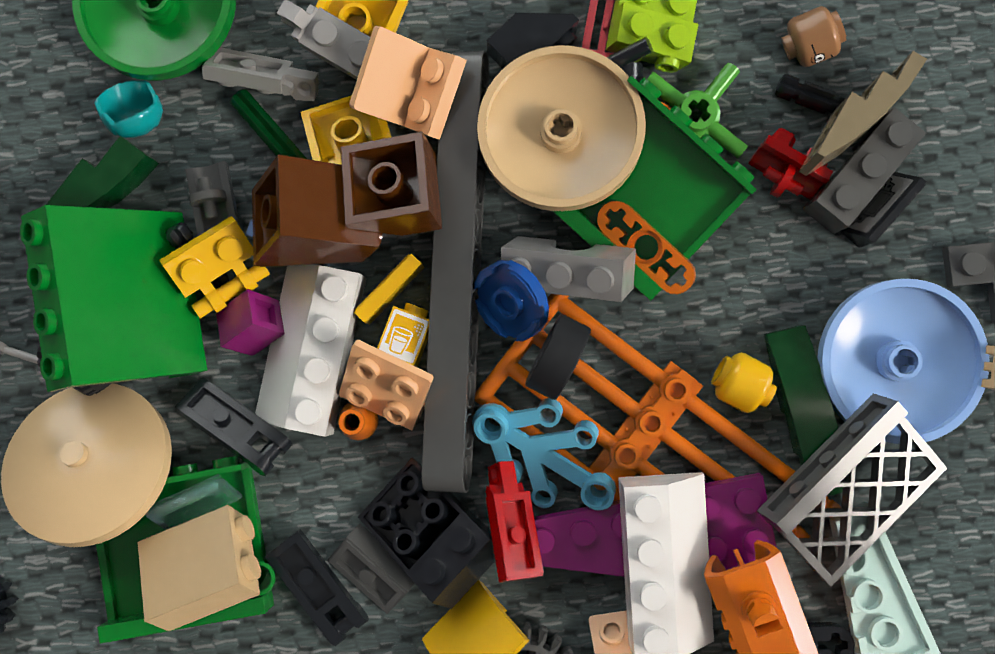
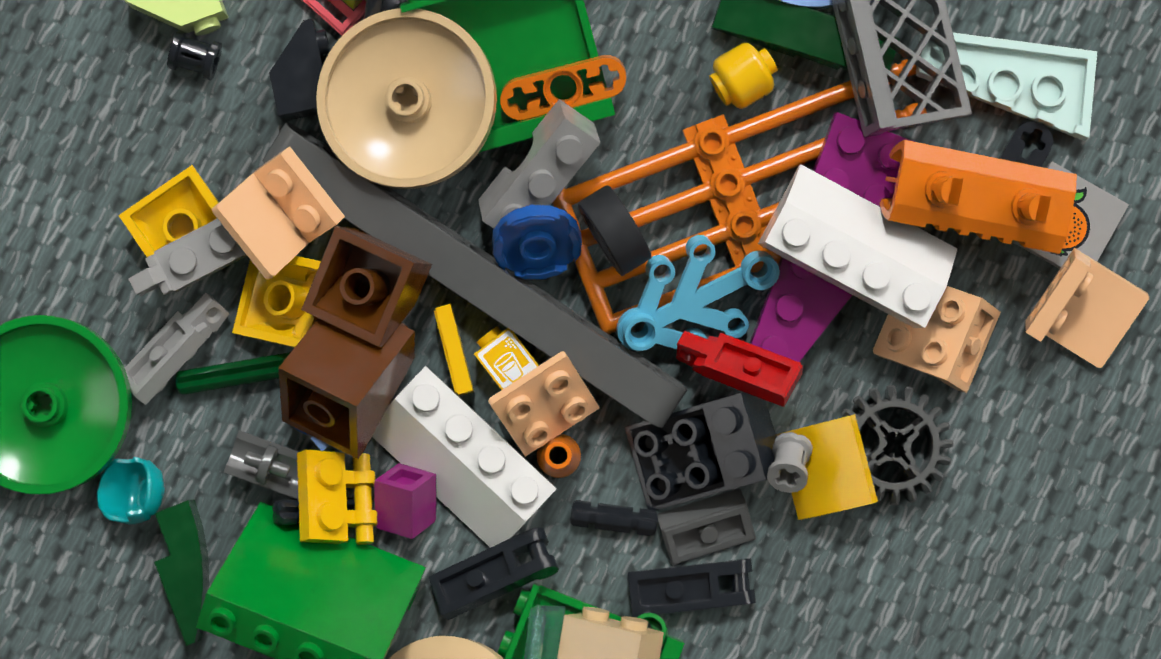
camera: 60 degrees left, 0 degrees up
(335, 493) = (614, 518): none -> black axle
(458, 612) = (789, 469): none -> light grey bush

